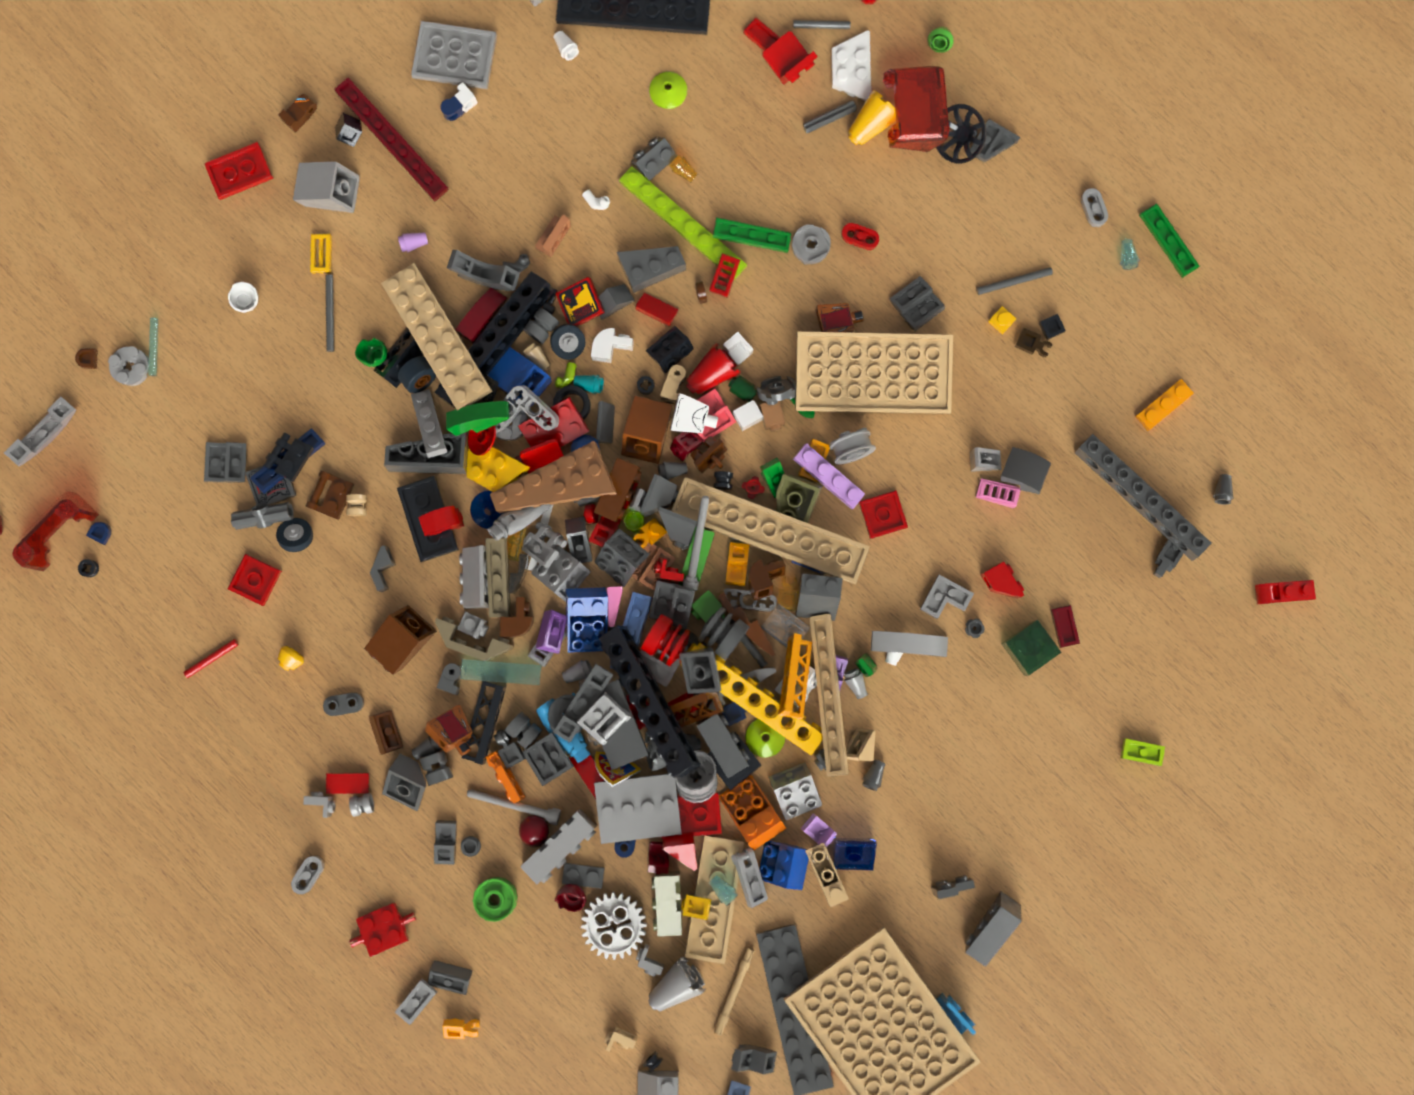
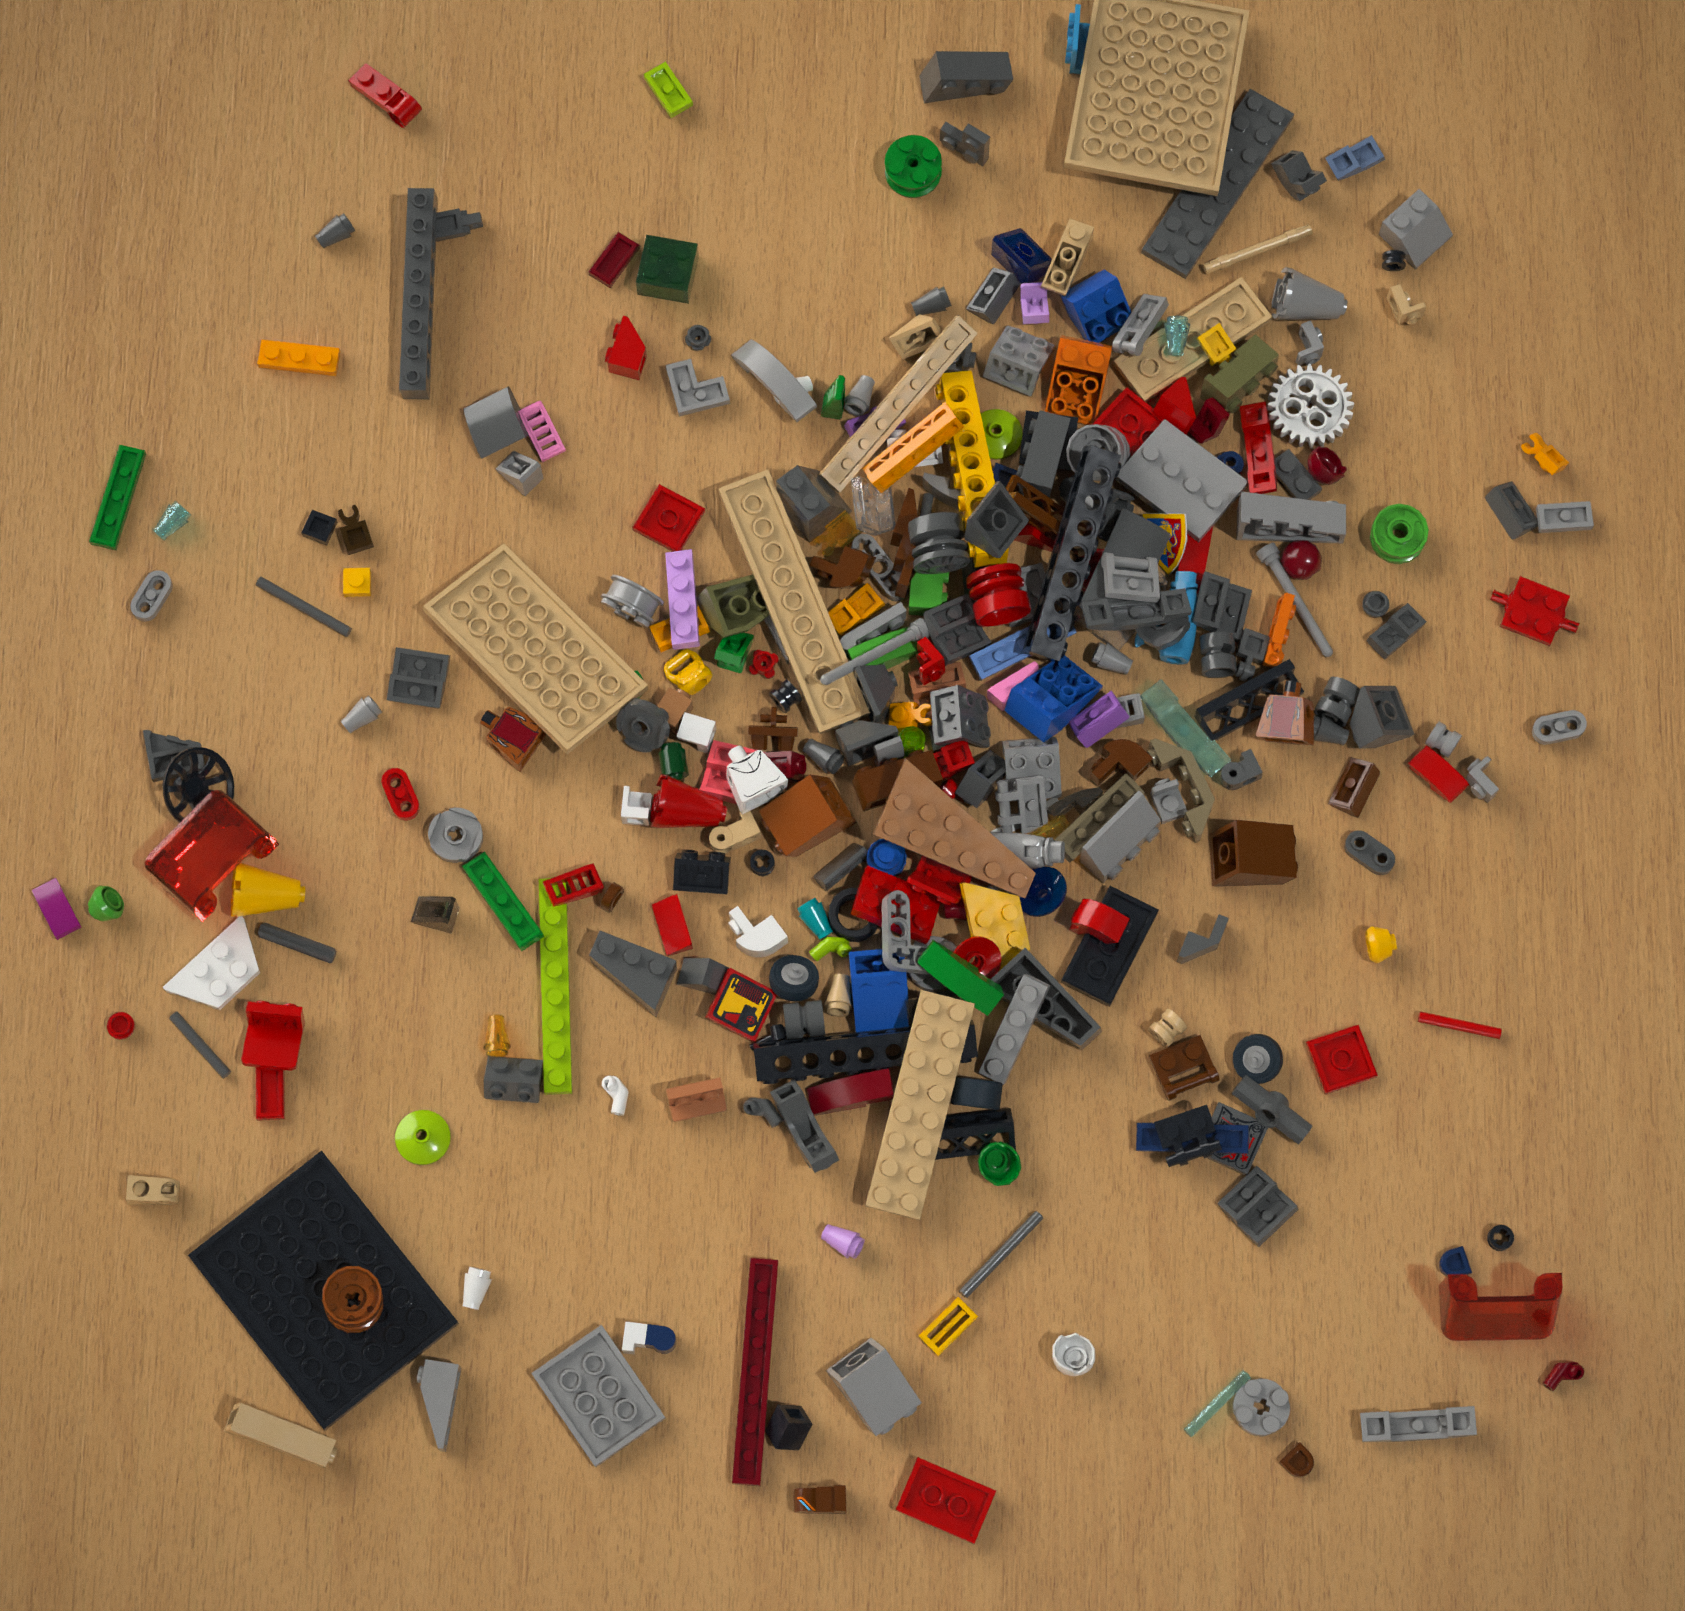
camera: 135 degrees left, 10 degrees down
(614, 869) = (1259, 448): none -> red slope
(715, 560) = (890, 619): none -> light grey plate
(777, 197) = (436, 912): none -> clear smoke slope
(781, 443) = (692, 677): none -> yellow piece
(847, 815) = (993, 295): none -> dark grey slope
(923, 258) = (361, 714): none -> light grey cone
(963, 14) = (56, 908): none -> magenta slope
(975, 852) = (913, 166): none -> green wheel

